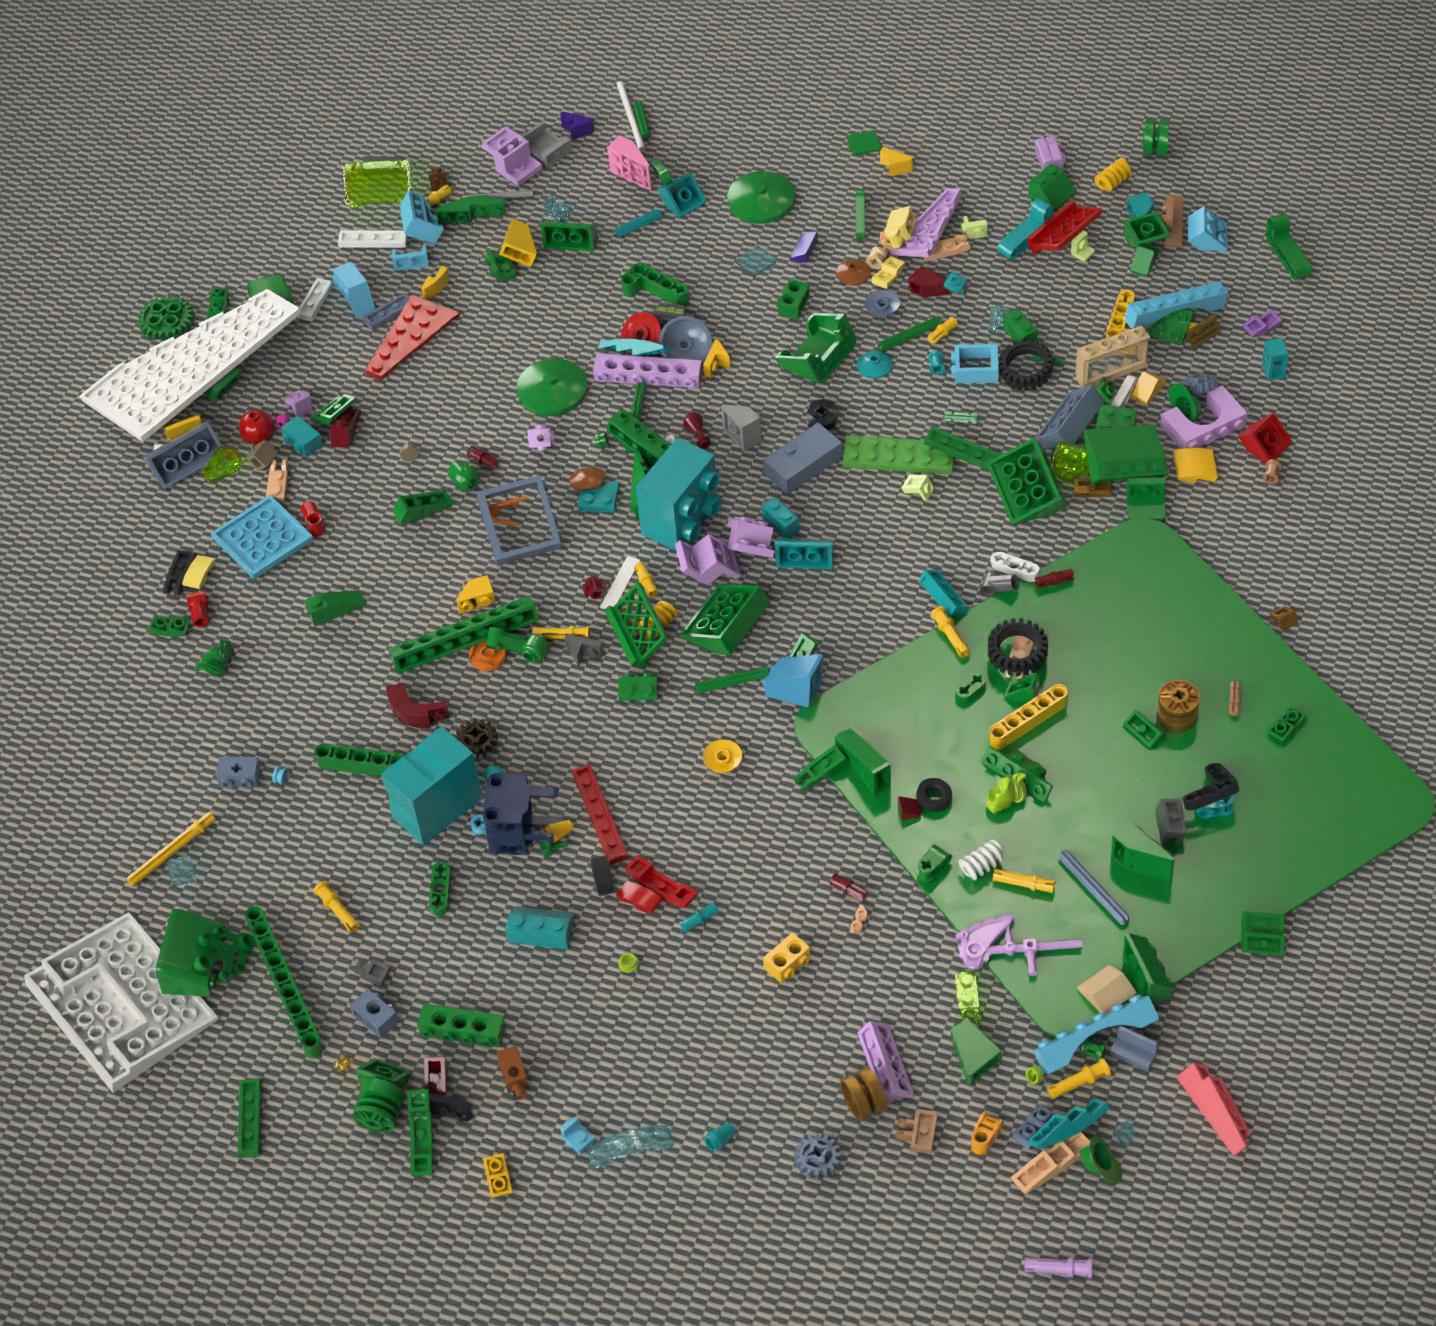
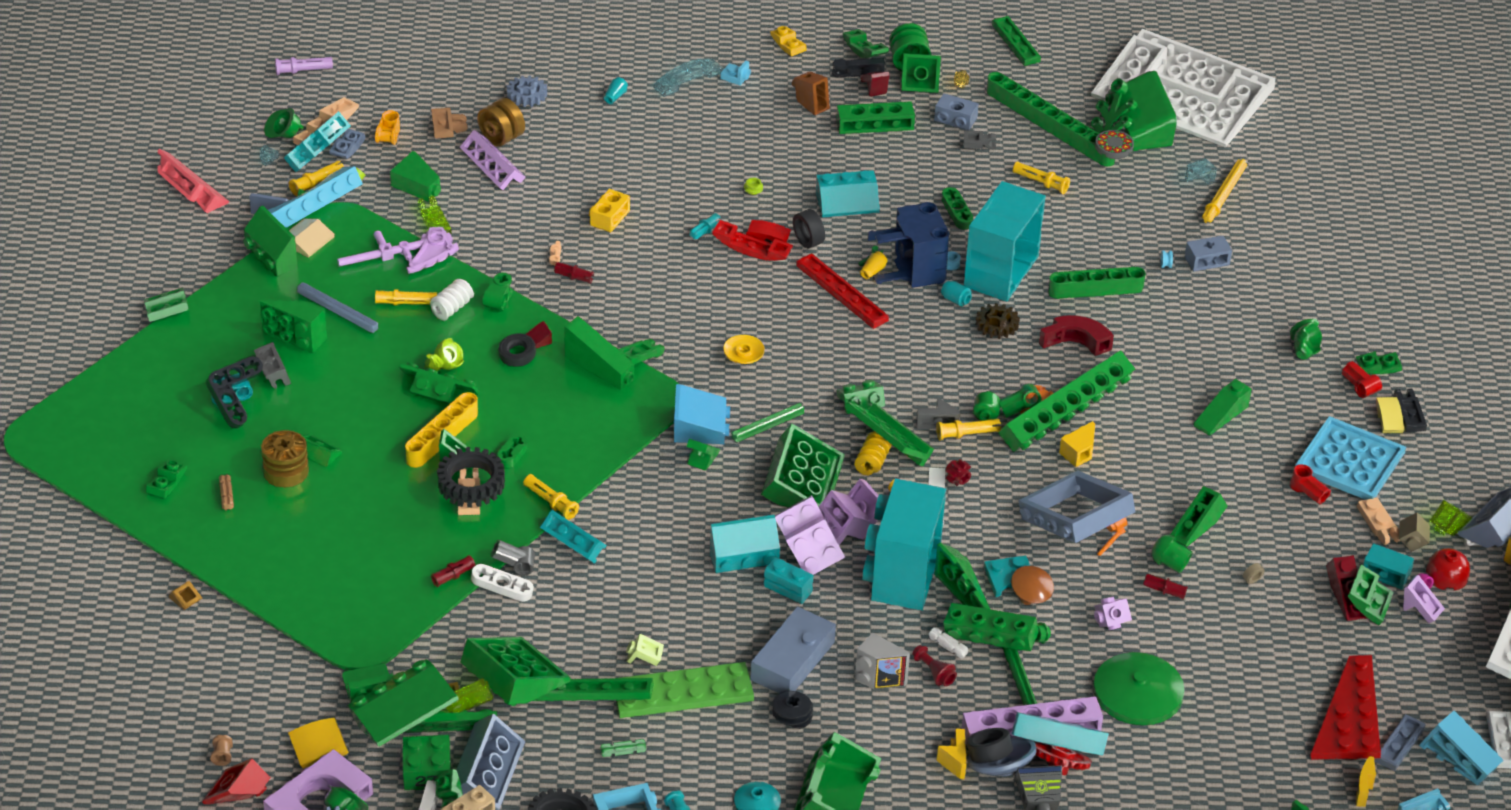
camera: 155 degrees right, 10 degrees down
(248, 907) = (1114, 144): none -> tile
(692, 331) = (989, 745): none -> black tyre

